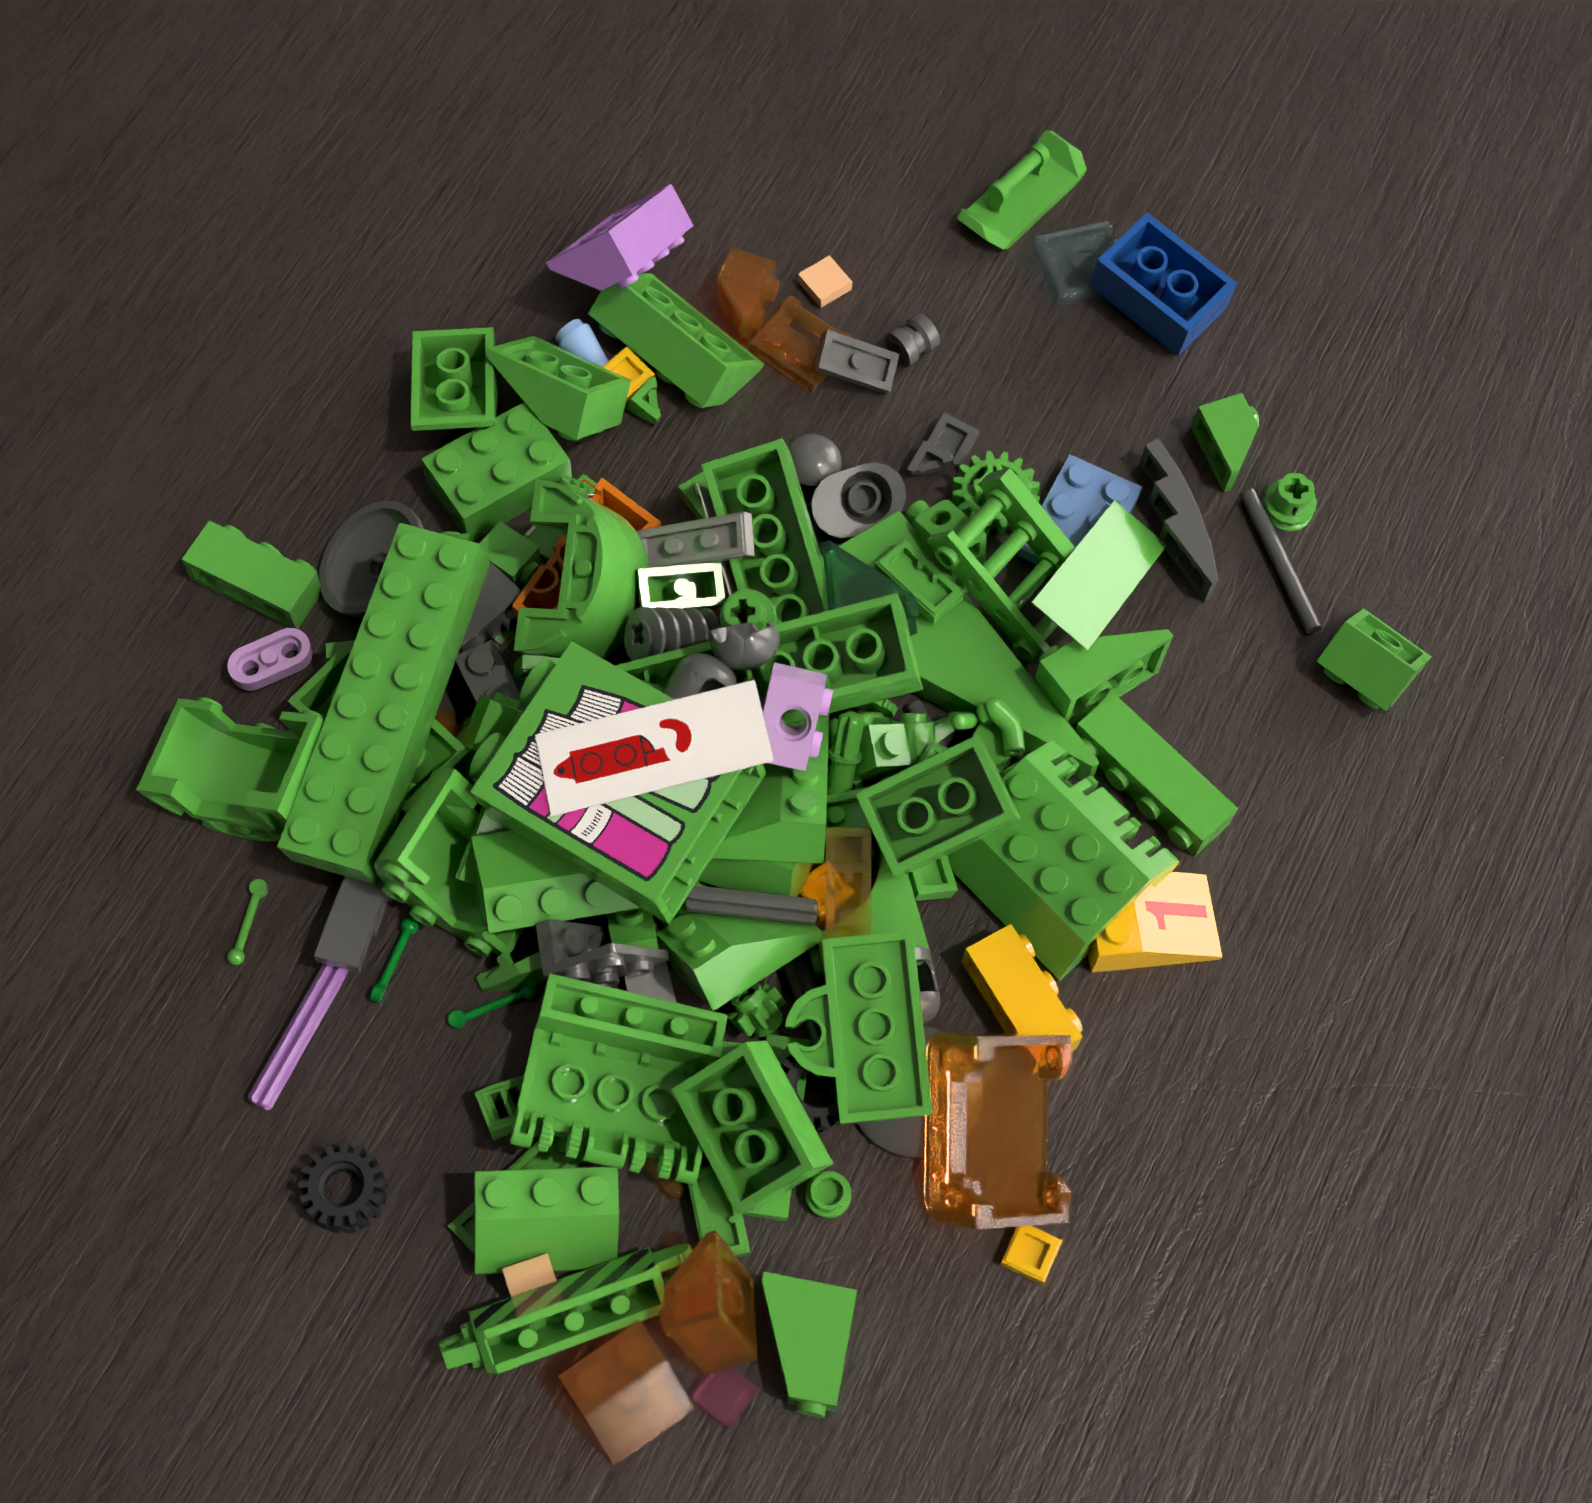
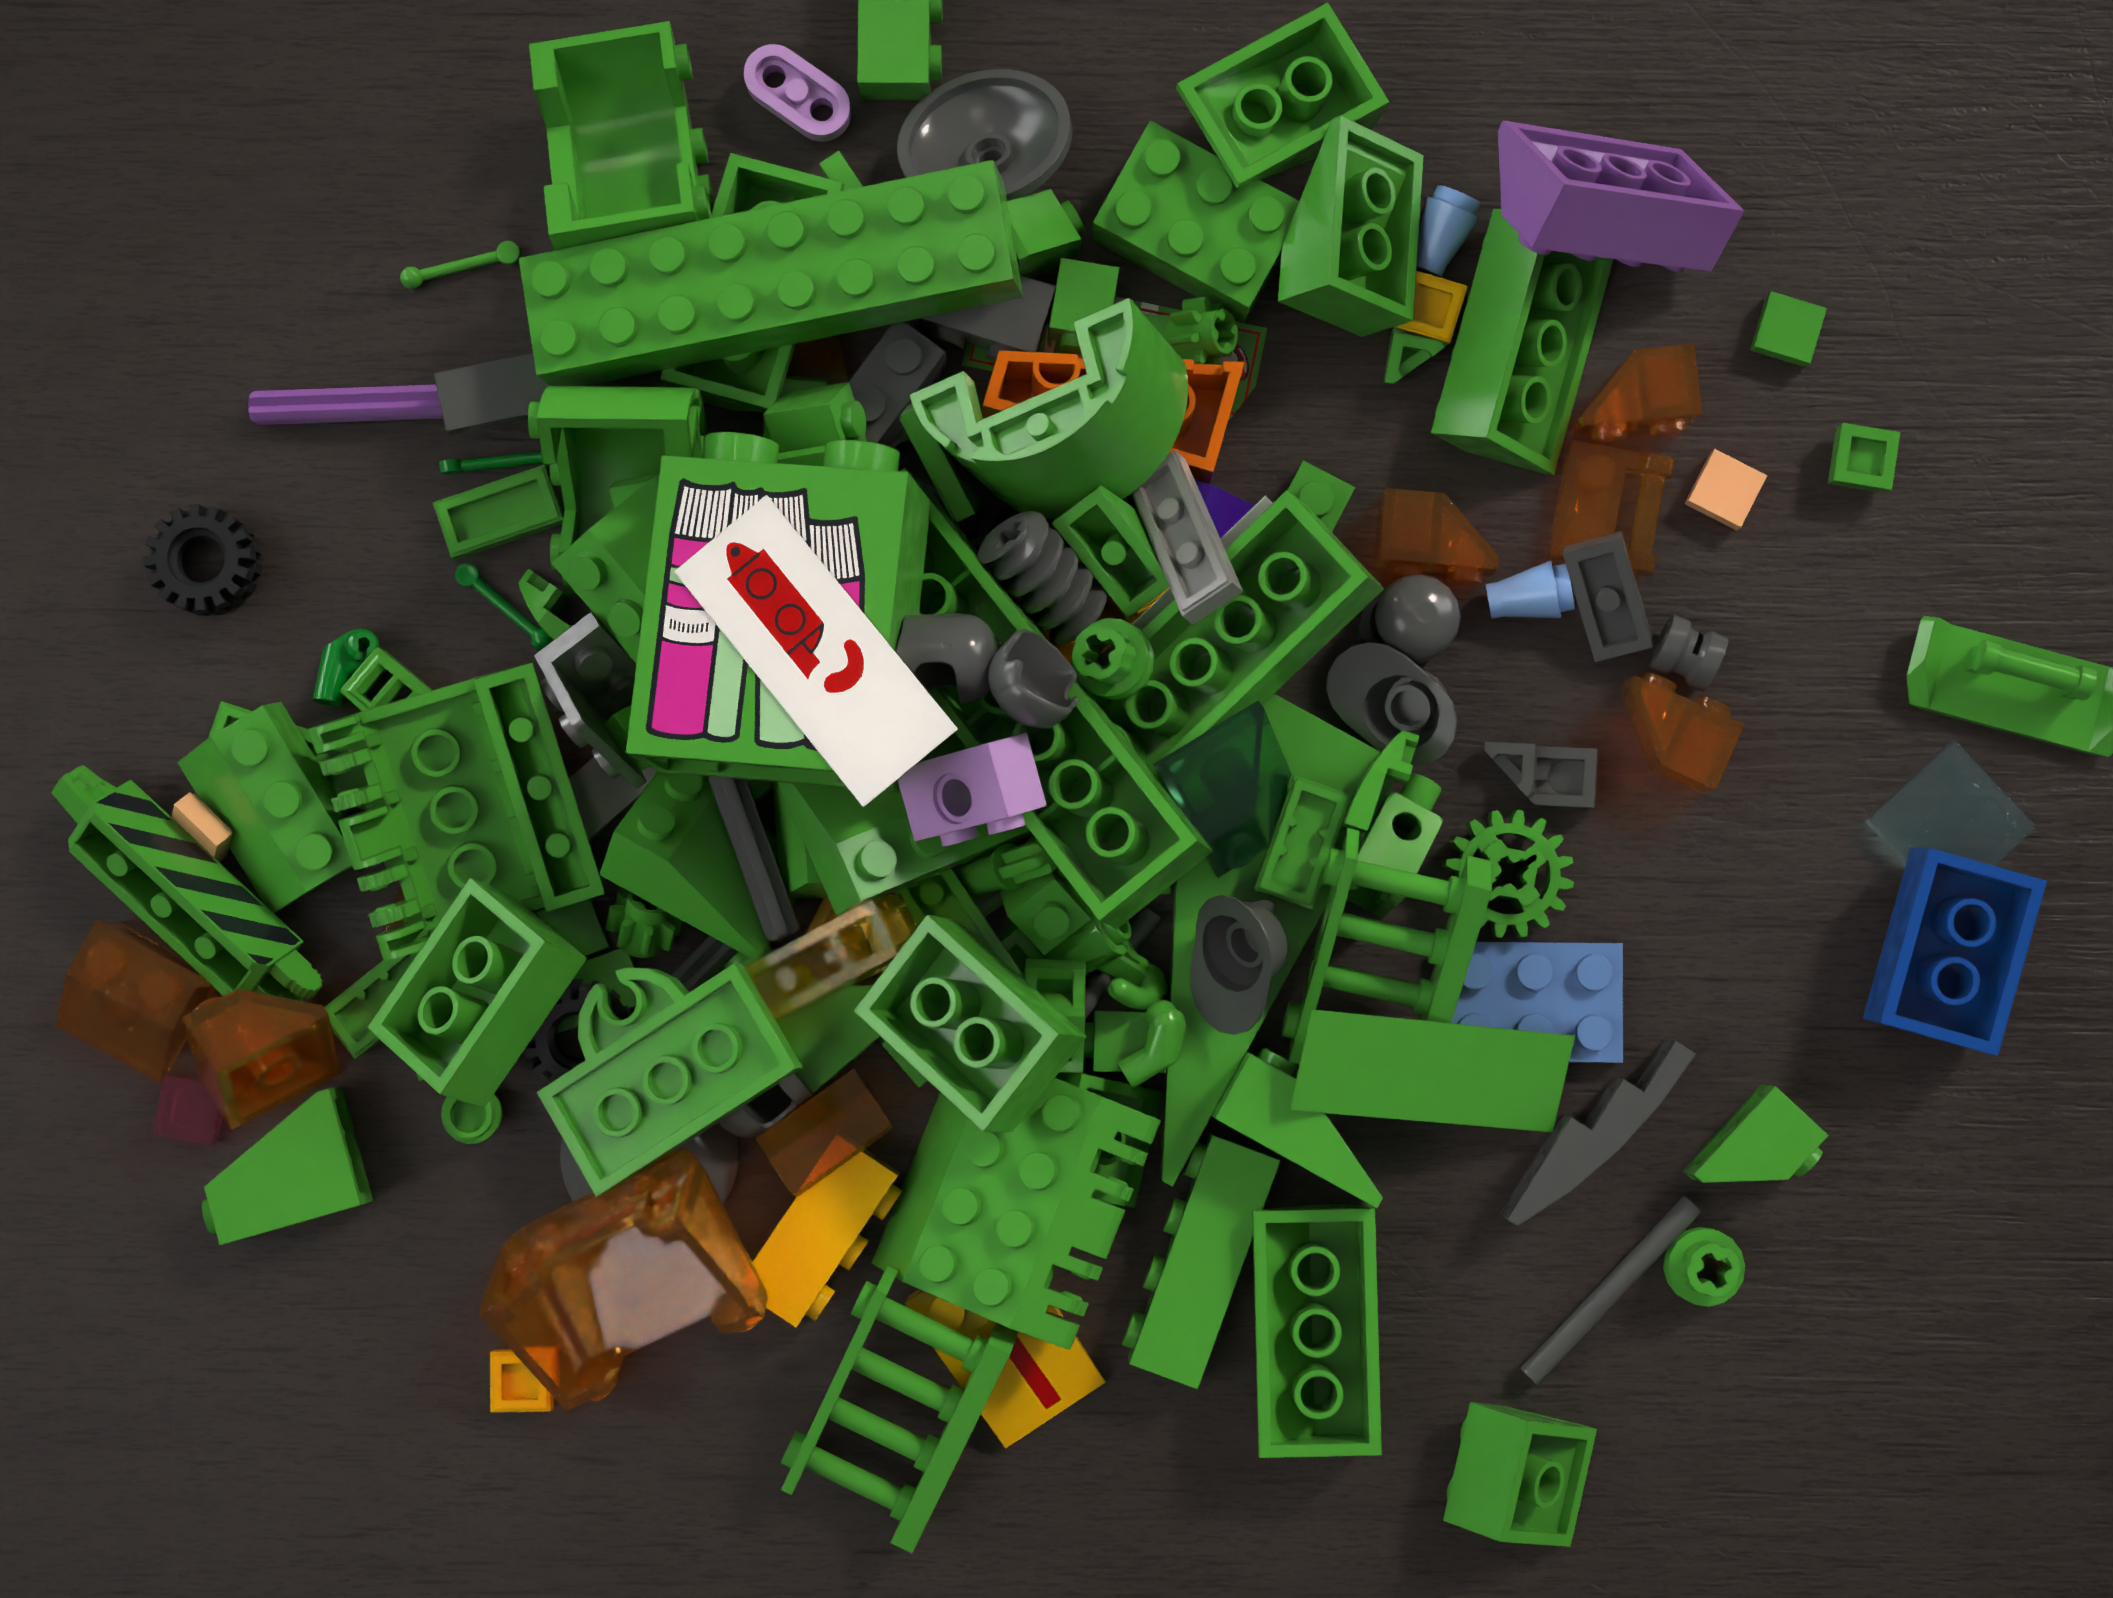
camera: 65 degrees right, 20 degrees up
(427, 977) = (499, 512): none -> bright green tile
(467, 1128) = (340, 662): none -> green arm
(749, 209) = (1788, 329): none -> bright green tile
(767, 426) = (1429, 535): none -> clear orange slope
(831, 401) = (1532, 593): none -> light blue cone
(847, 204) = (1864, 458): none -> bright green plate
(902, 521) = (1390, 764): none -> bright green slope
(957, 367) = (1680, 736): none -> clear orange slope
(960, 957) = (825, 1132): none -> clear orange panel
(976, 650) = (1233, 961): none -> dark grey piece
(1211, 989) = (932, 1455): none -> bright green fence
(1234, 717) = (1316, 1331): none -> bright green slope

